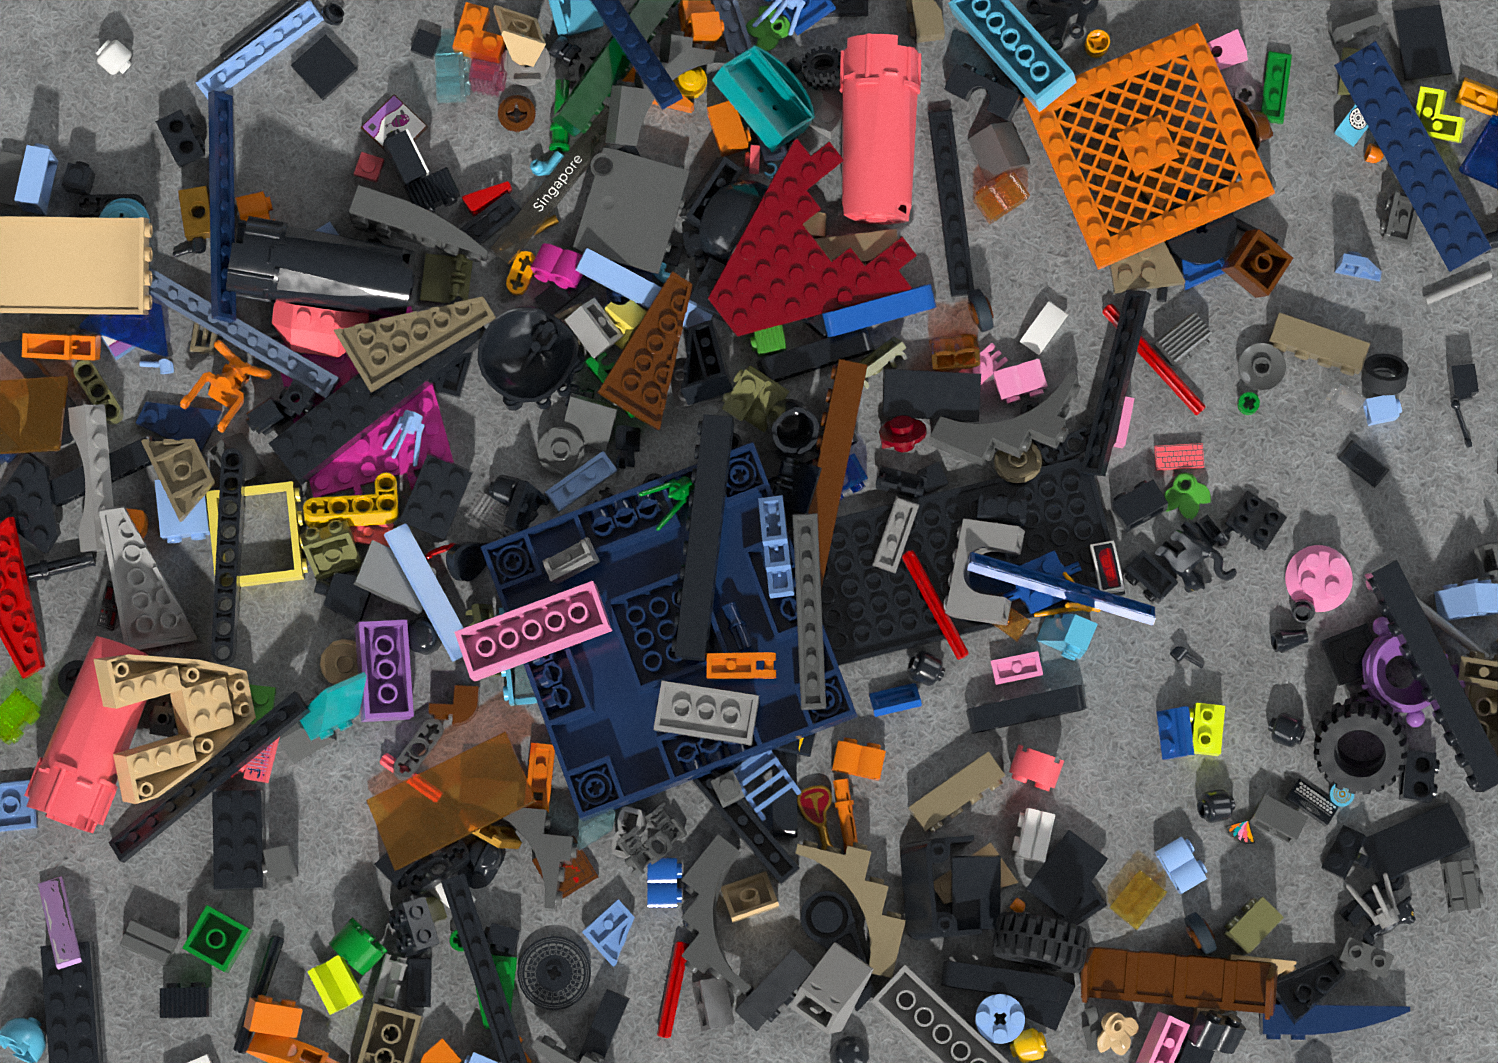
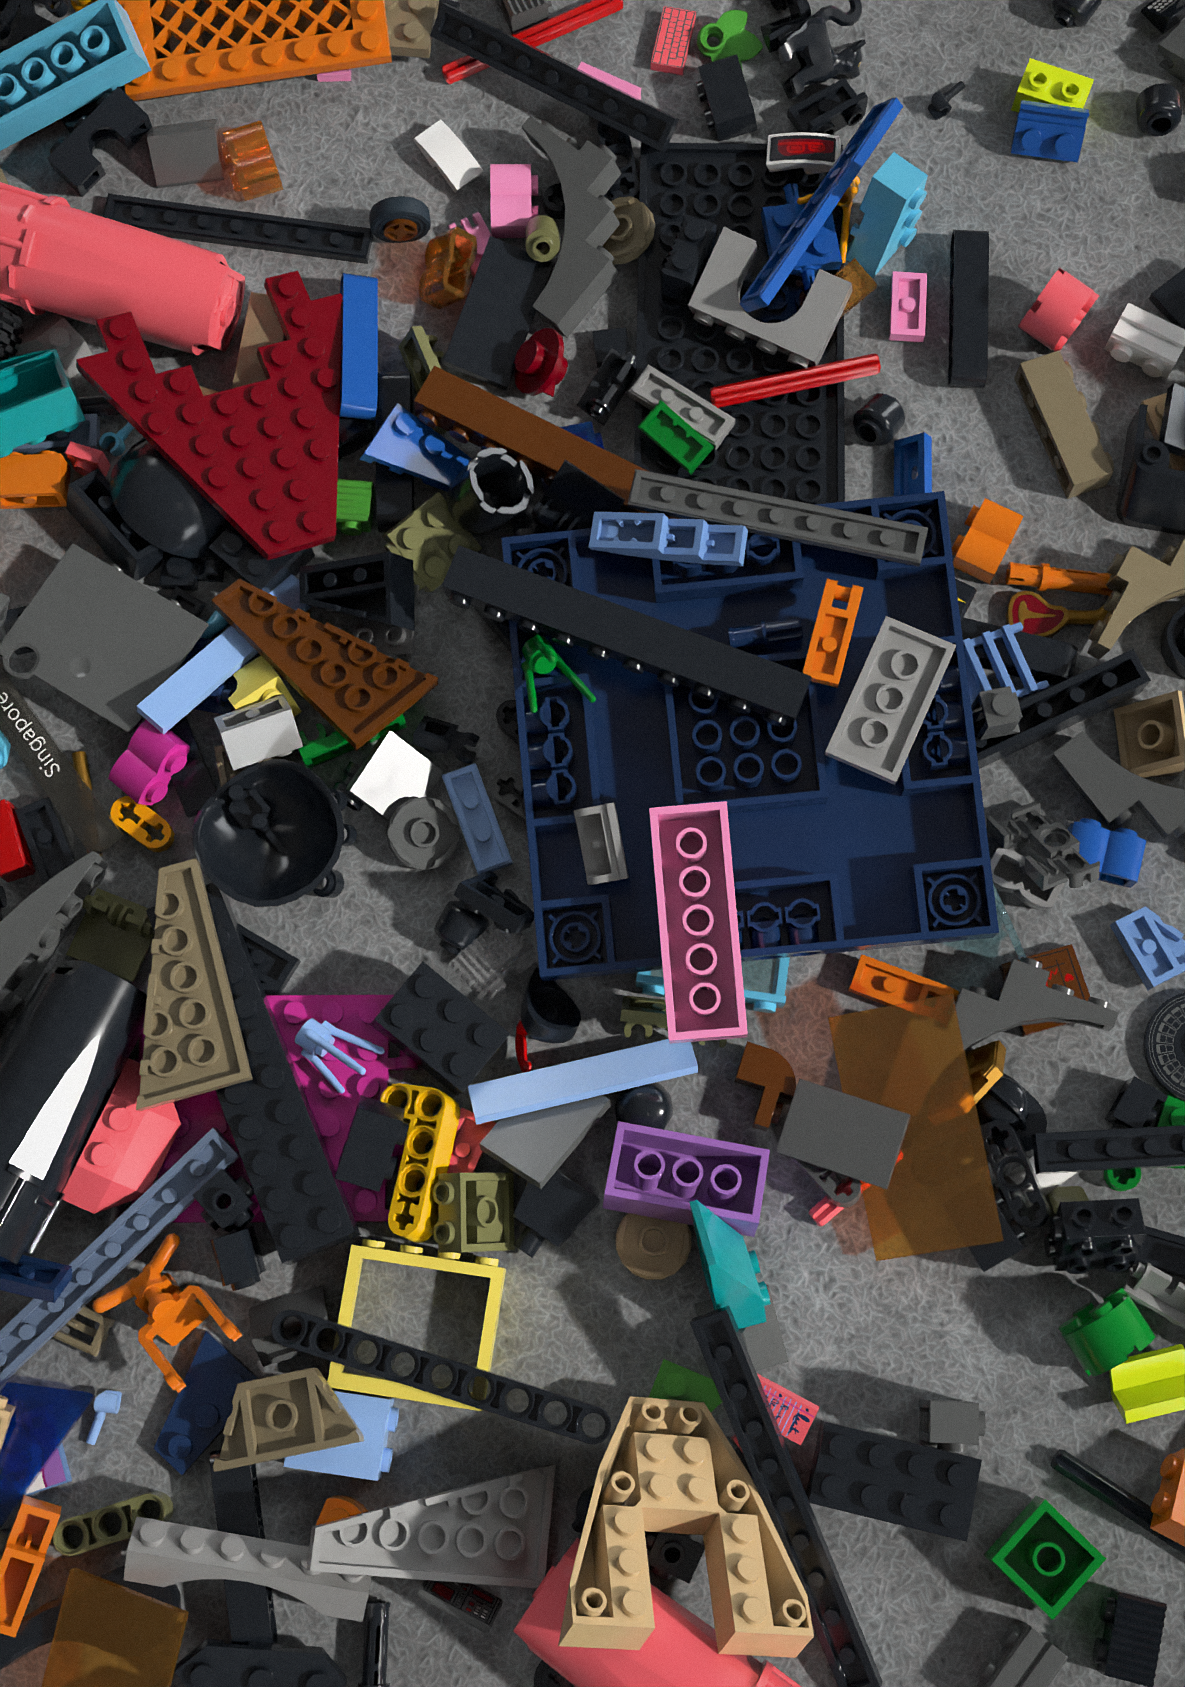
camera: 70 degrees left, 5 degrees down
(353, 474) = (370, 1144): none -> black brick
(435, 758) = (843, 1133): none -> dark grey tile
(813, 372) = (415, 449): none -> blue wing
(870, 536) = (675, 437): none -> green plate
(990, 409) = (542, 238): none -> olive brick

